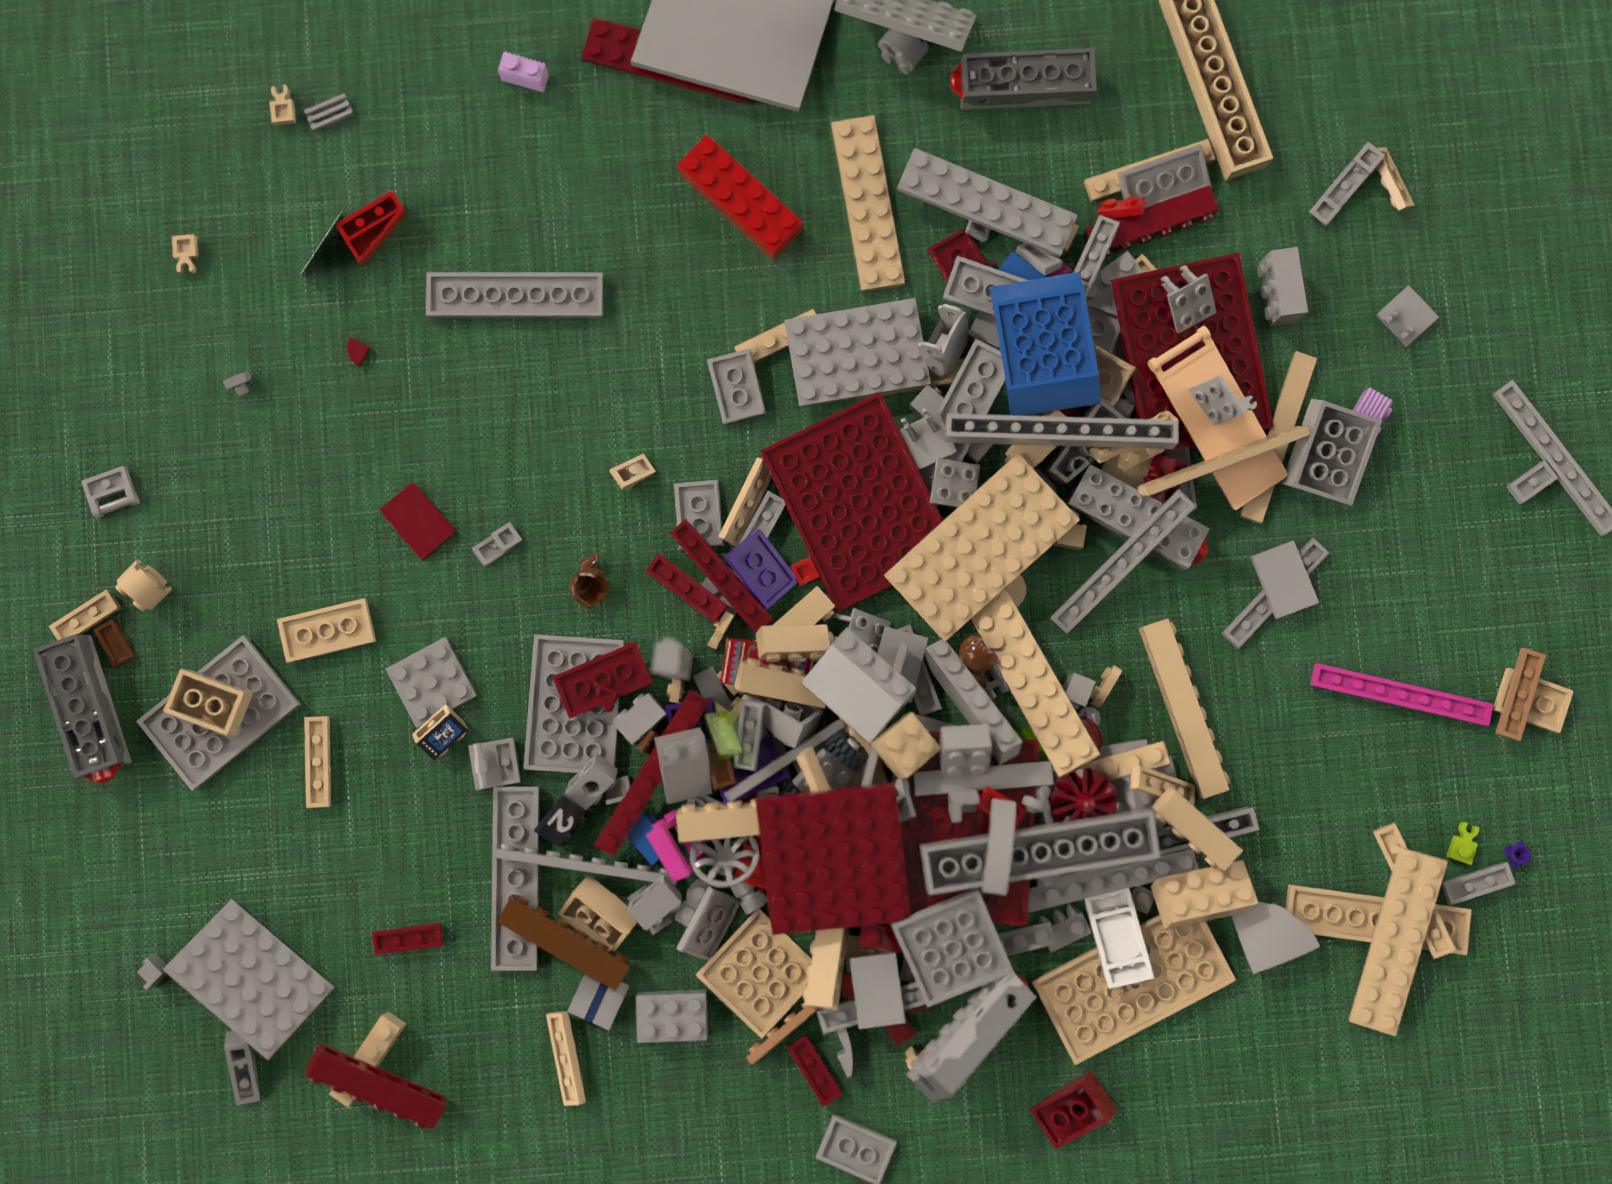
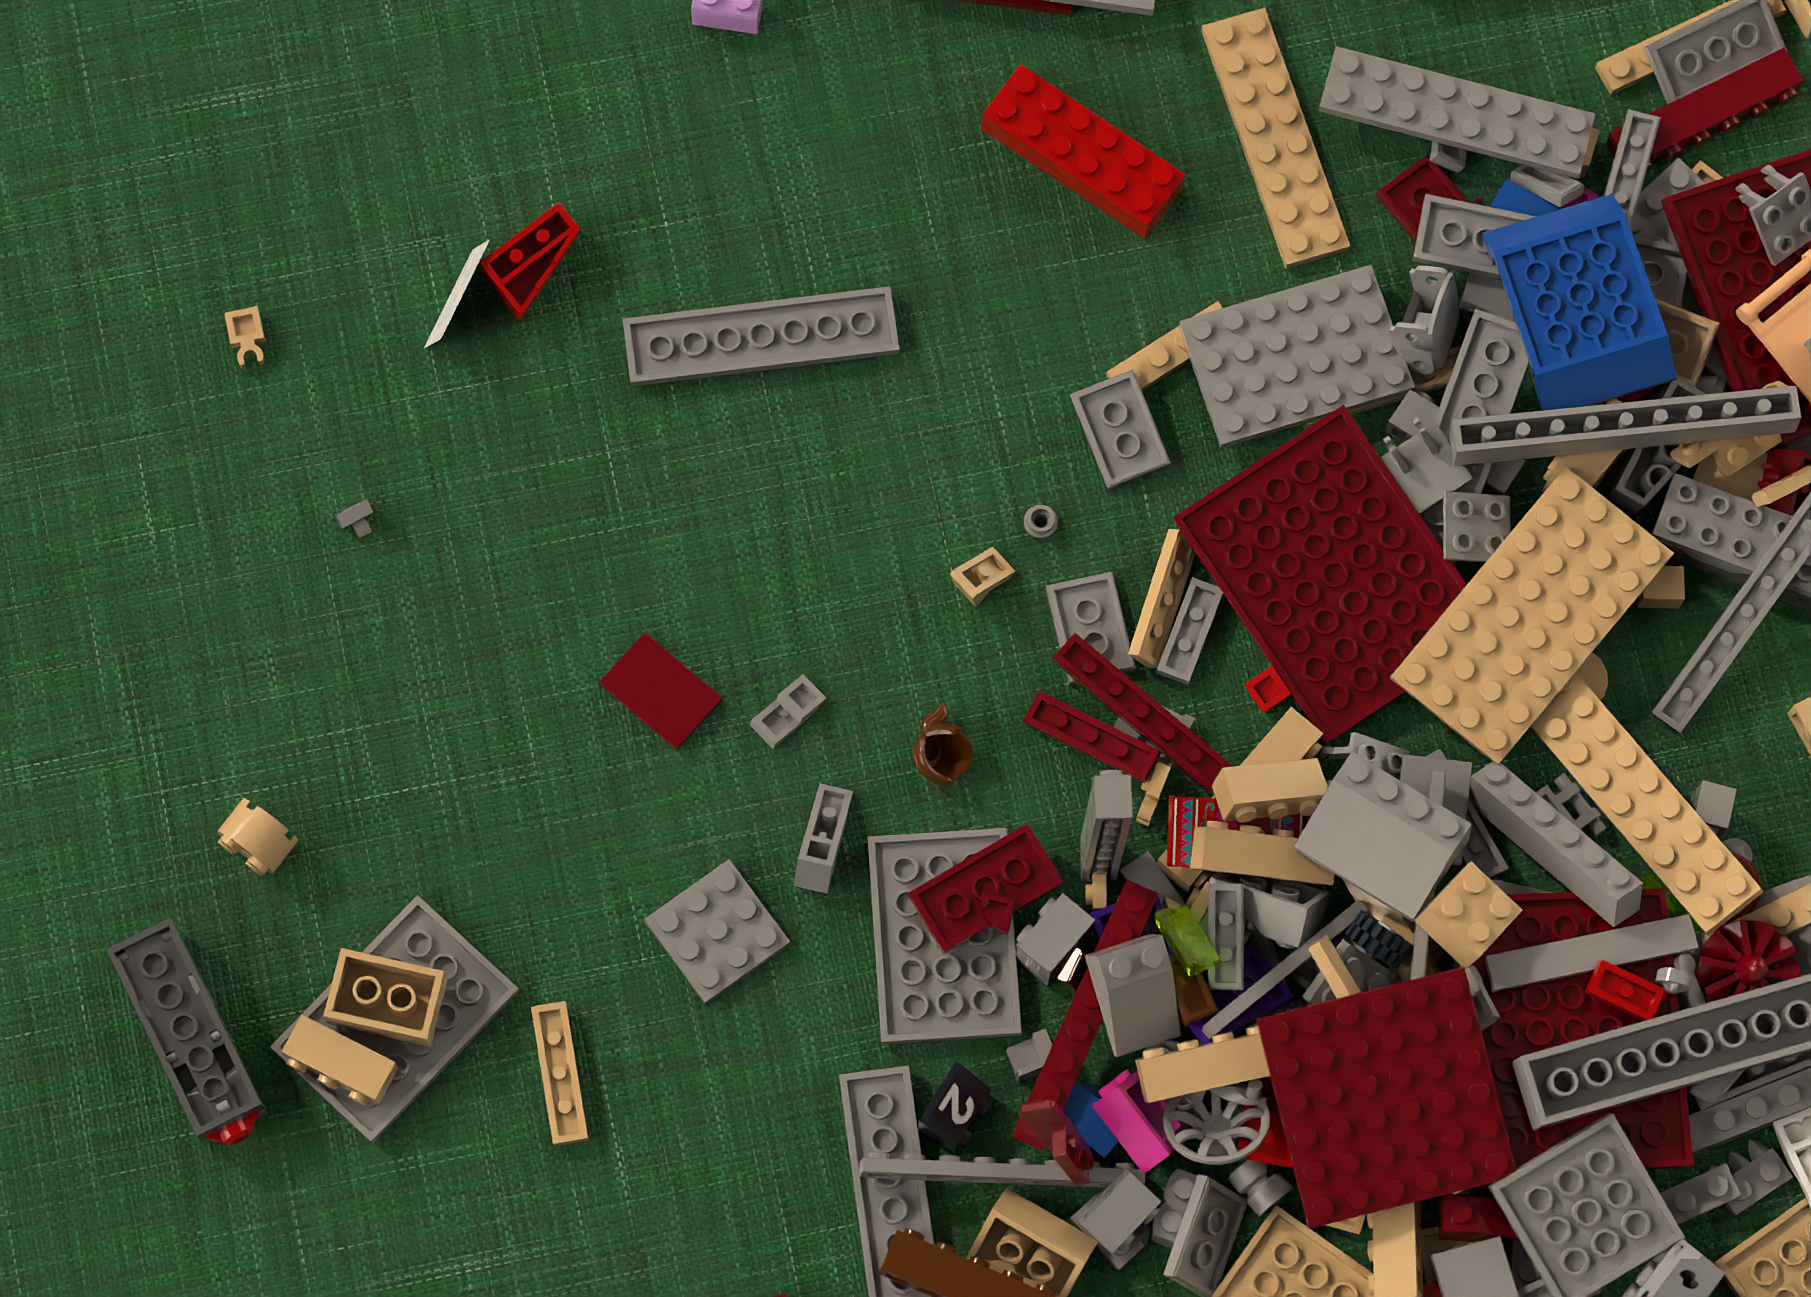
camera: 10 degrees left, 10 degrees down
(86, 615) = (168, 897): tan plate -> none
(106, 485) = (173, 697): light grey plate -> none
(114, 643) = (215, 935): reddish brown tile -> none
(175, 738) = (339, 1061): none -> tan brick
(283, 108) = (365, 105): tan plate -> none
(310, 112) = (430, 92): light grey tile -> none
(326, 630) = (544, 873): tan plate -> none
(357, 351) = (530, 449): dark red tile -> none
(440, 732) = (745, 1001): brick -> none
(494, 763) = (834, 1040): light grey plate -> none
(505, 631) = (823, 838): none -> light grey slope
(597, 771) = (994, 1024): light grey brick -> none
(625, 860) = (1061, 1138): none -> dark red bracket
(674, 434) = (1044, 512): none -> light grey plate
(745, 841) = (1241, 1095): none -> light grey bar
(761, 568) = (1202, 692): dark purple plate -> none
(962, 801) = (1566, 991): light grey panel -> none
(965, 750) = (1558, 909): light grey brick -> none
(977, 658) = (1552, 777): reddish brown hair -> none
(999, 847) = (1635, 1042): light grey slope -> none
(1109, 678) = (1745, 815): tan plate -> none
(1129, 207) = (1669, 94): red plate -> none

